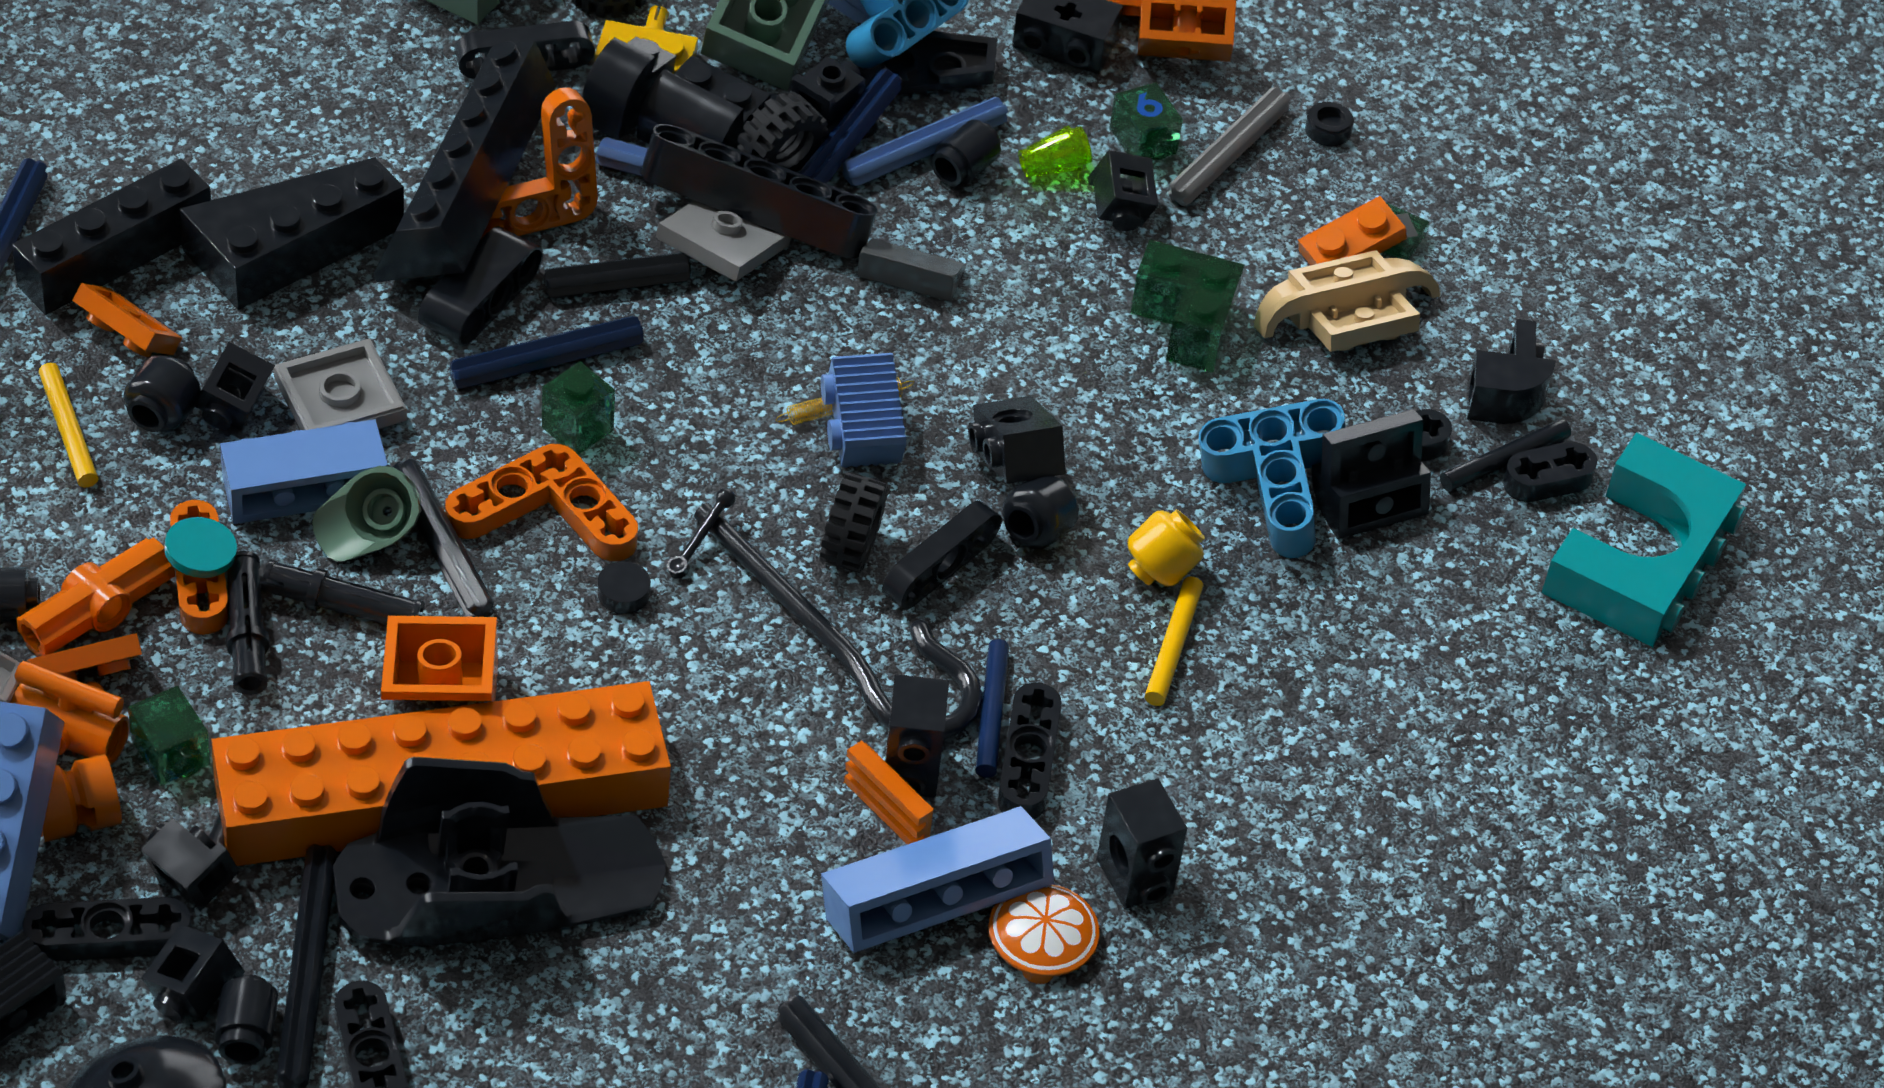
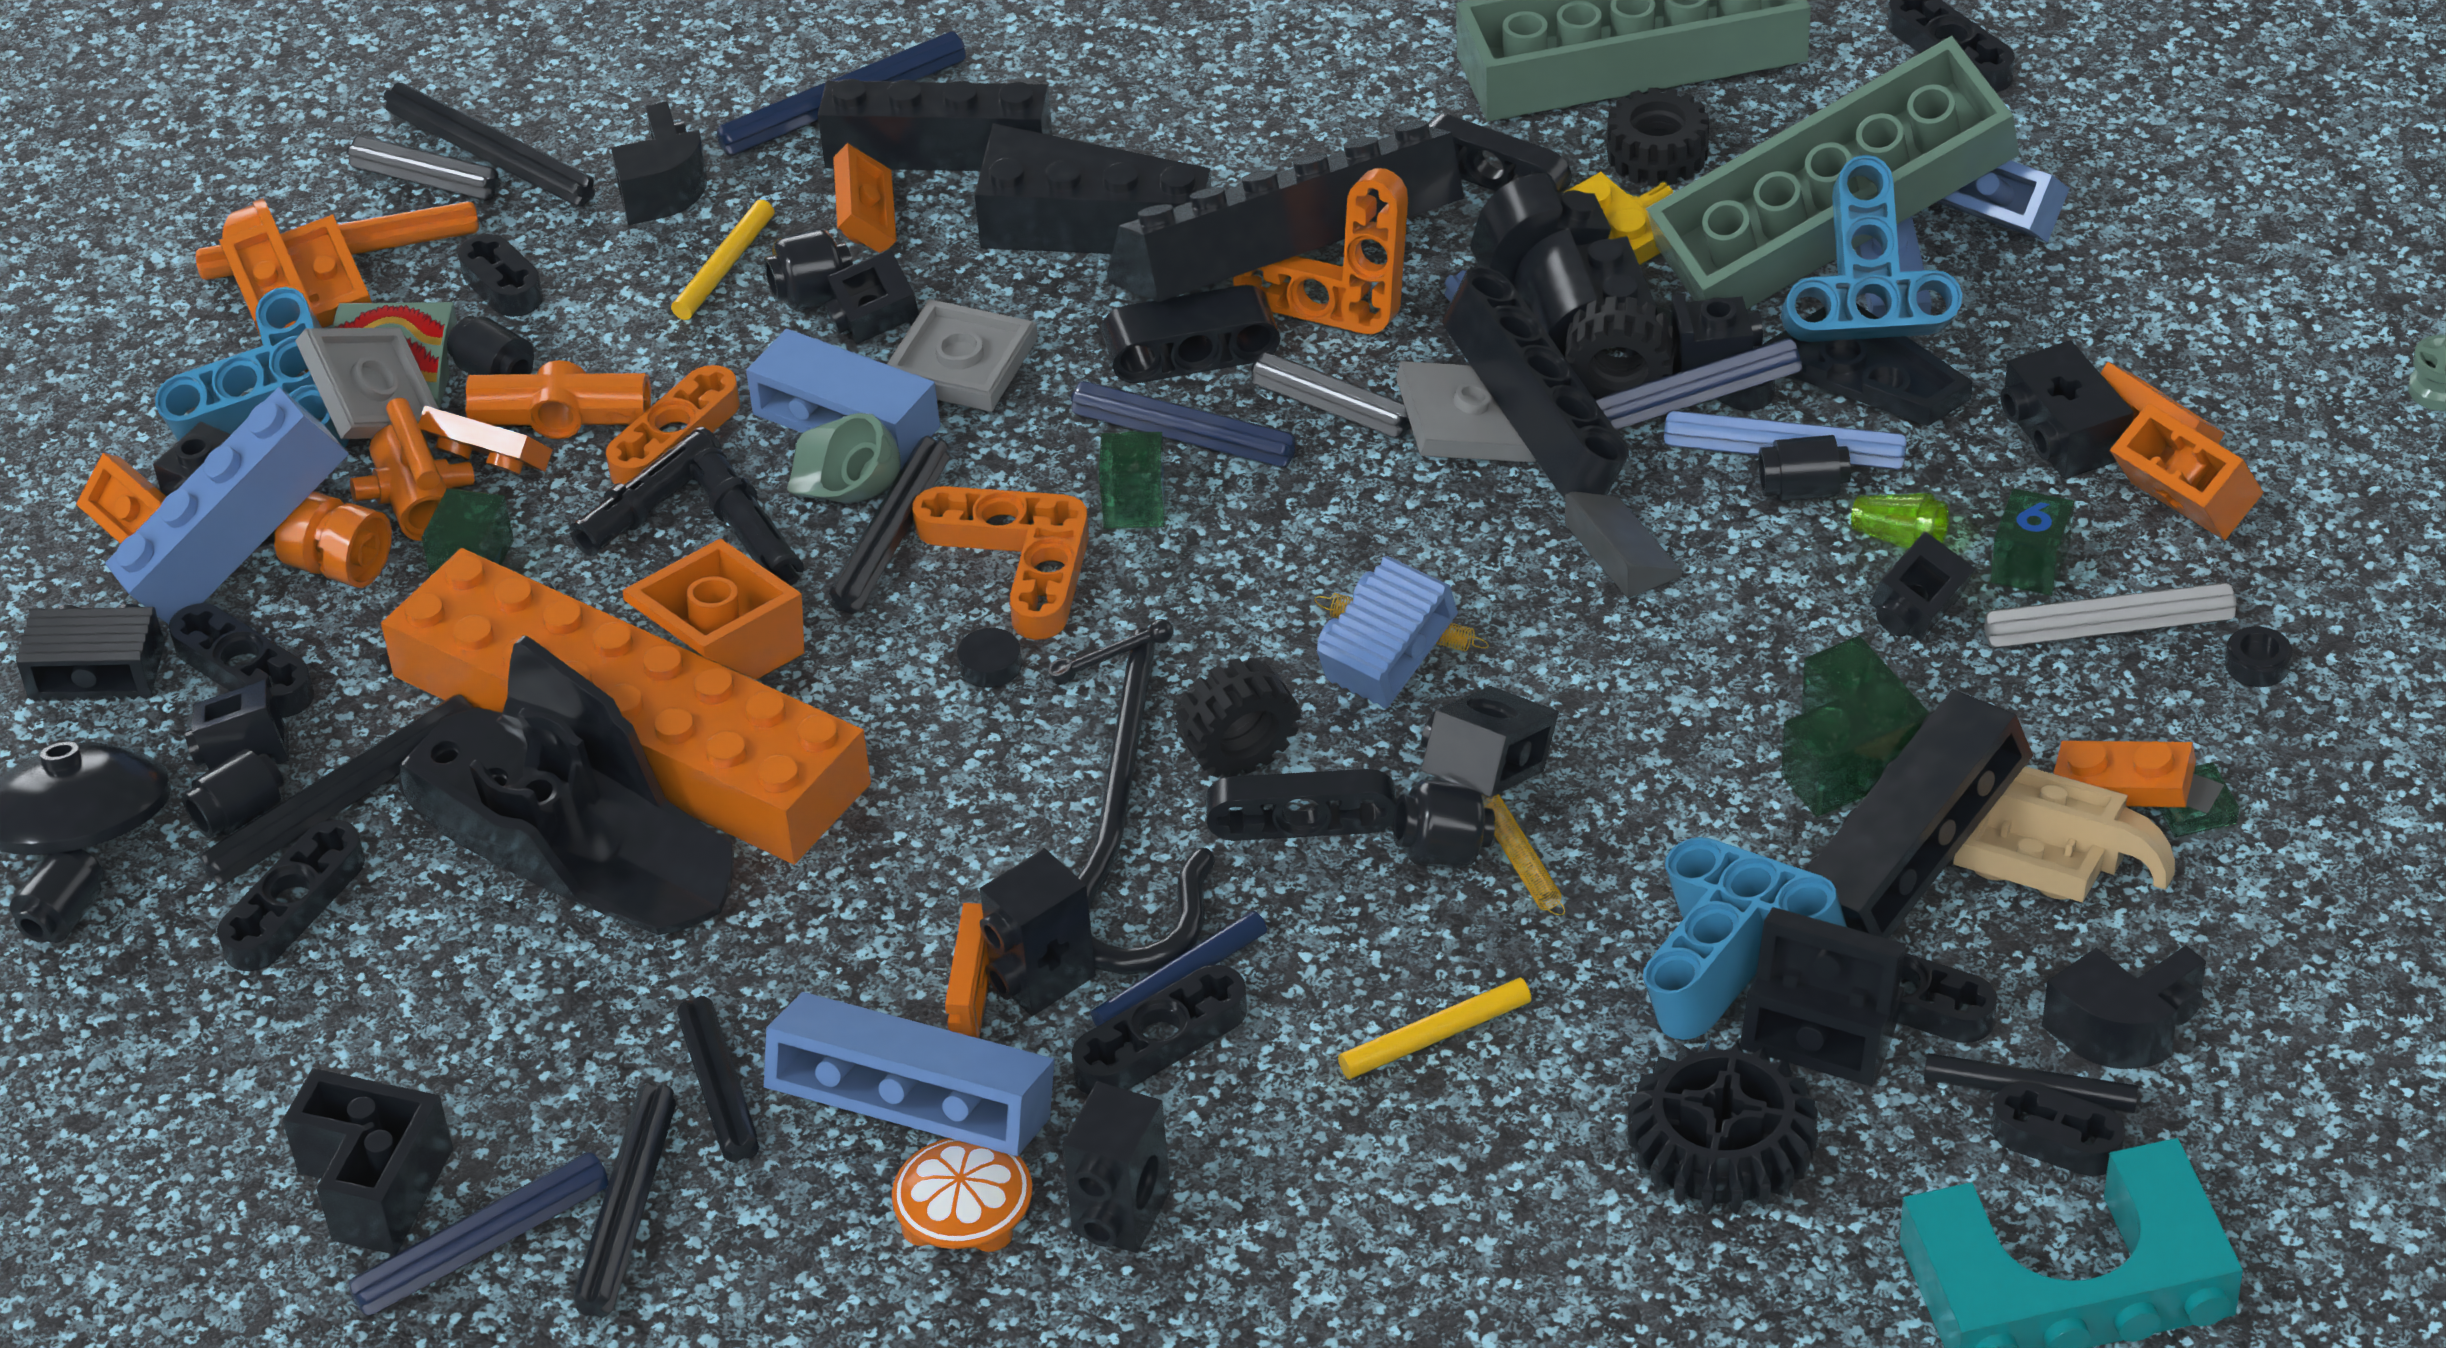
camera: 55 degrees right, 5 degrees down
(189, 862) = (346, 644): black brick -> none
(200, 547) = (669, 402): teal piece -> none
(811, 969) = (718, 1079): none -> black axle
(1117, 511) = (1519, 832): none -> yellow piece
(1165, 548) = (1516, 930): yellow head -> none
(1303, 320) = (1922, 811): none -> black brick
(1398, 602) = (1690, 1146): none -> black gear

